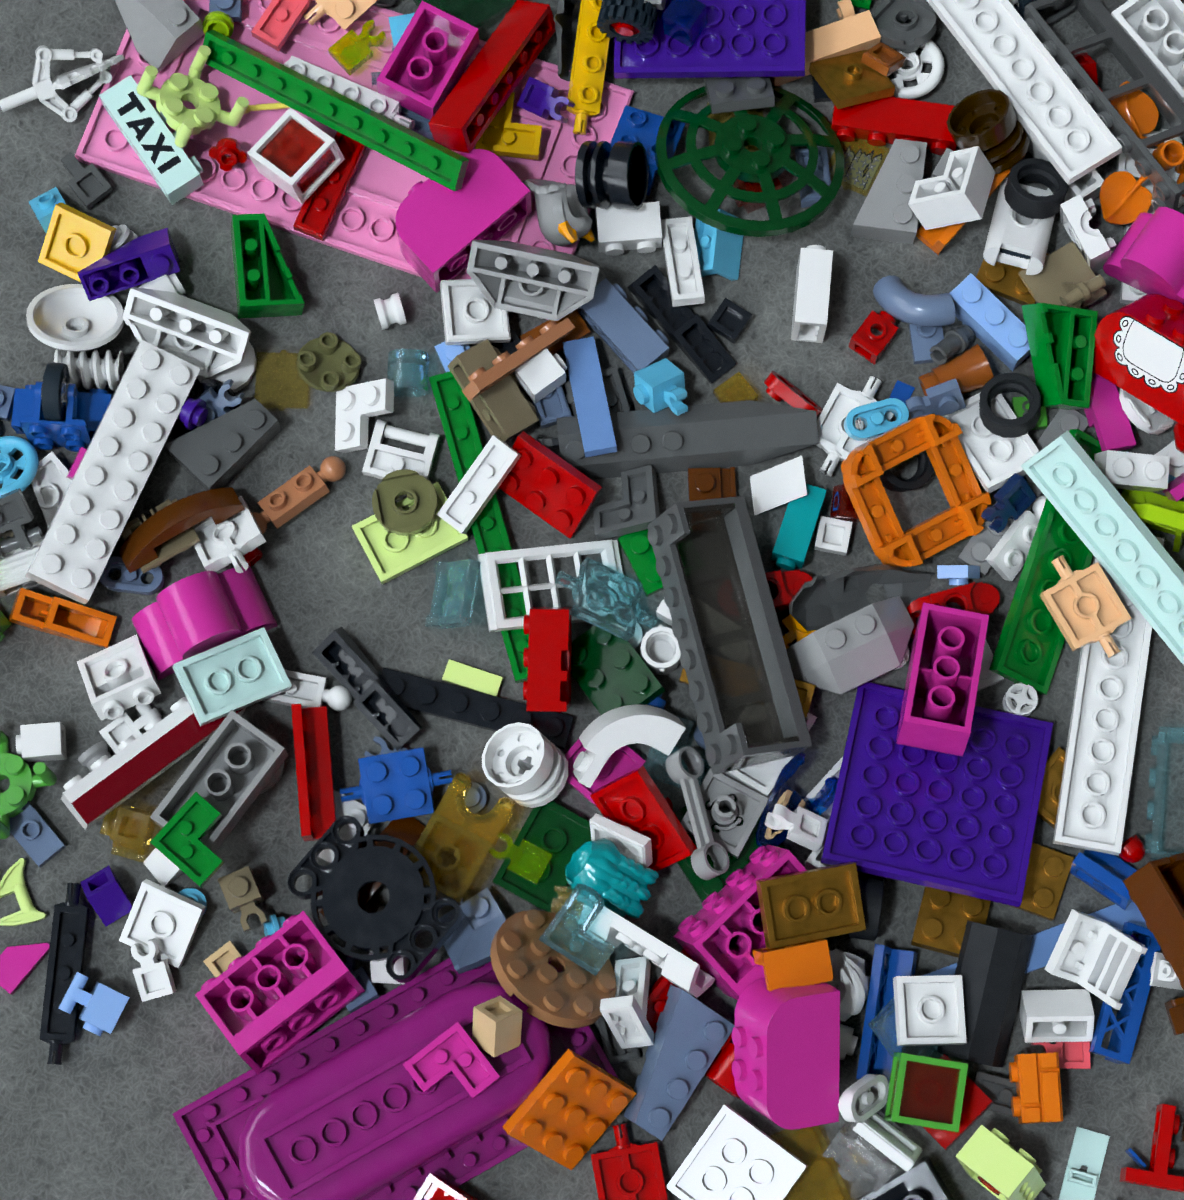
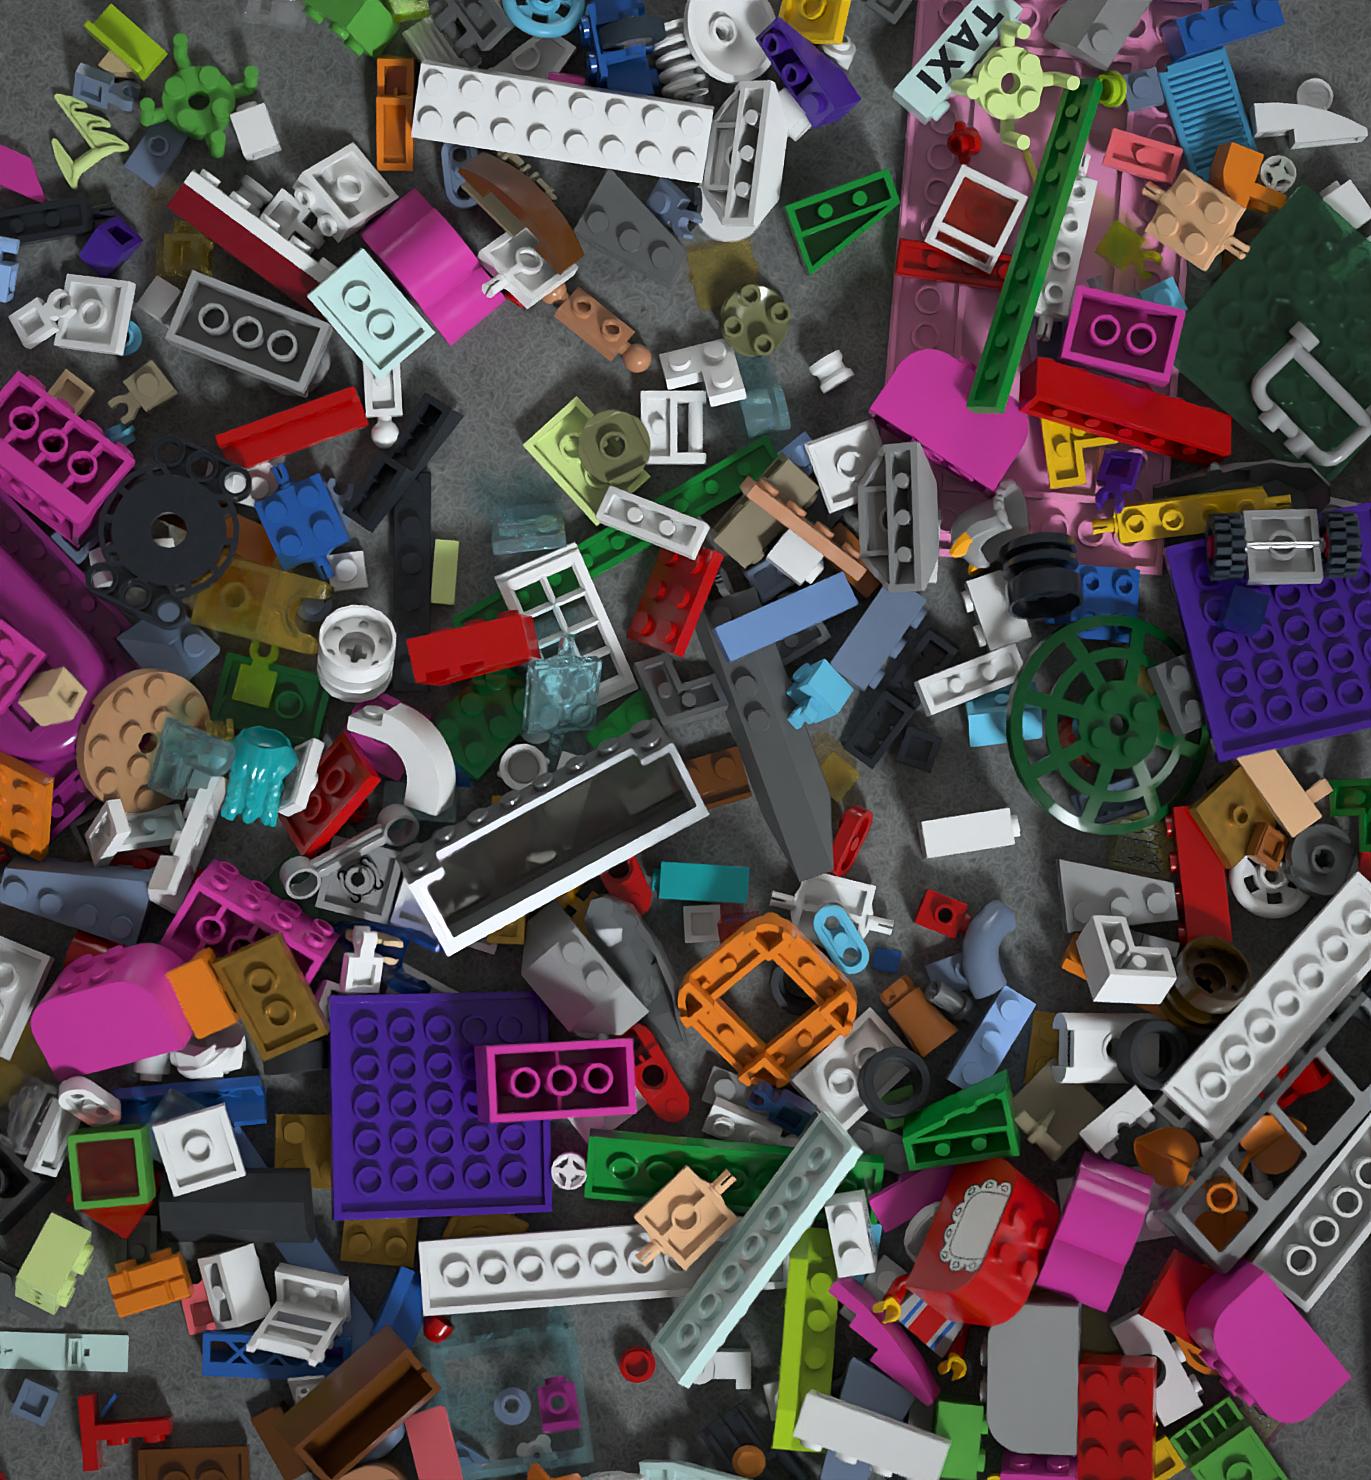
camera: 75 degrees right, 10 degrees up
(181, 840) = (171, 311): green plate -> none
(193, 413) = (651, 189): dark purple plate -> none
(449, 757) = (348, 571): none -> white plate
(778, 485) = (740, 849): white sticker -> none
(940, 400) = (881, 1003): sand blue plate -> none
(958, 573) = (692, 1070): light blue plate -> none

